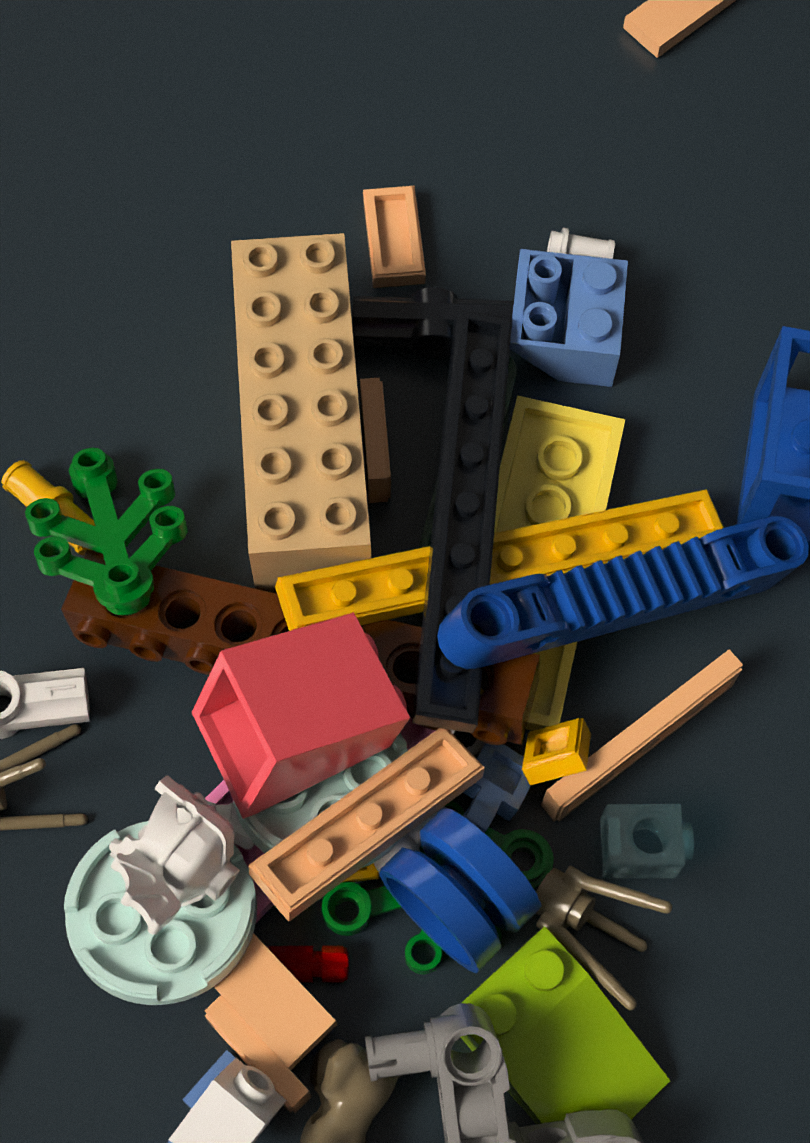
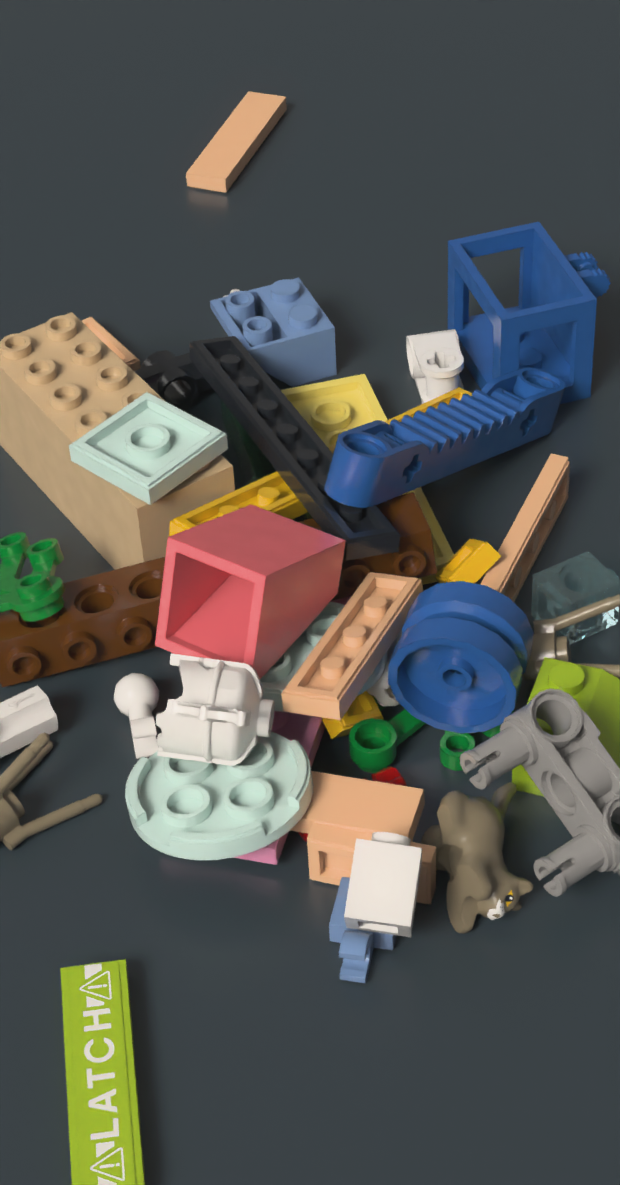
camera: 25 degrees left, 25 degrees down
(173, 728) = (137, 698): none -> white arm
(295, 488) = (148, 448): none -> light aqua tile
(706, 444) = (435, 362): none -> white piece

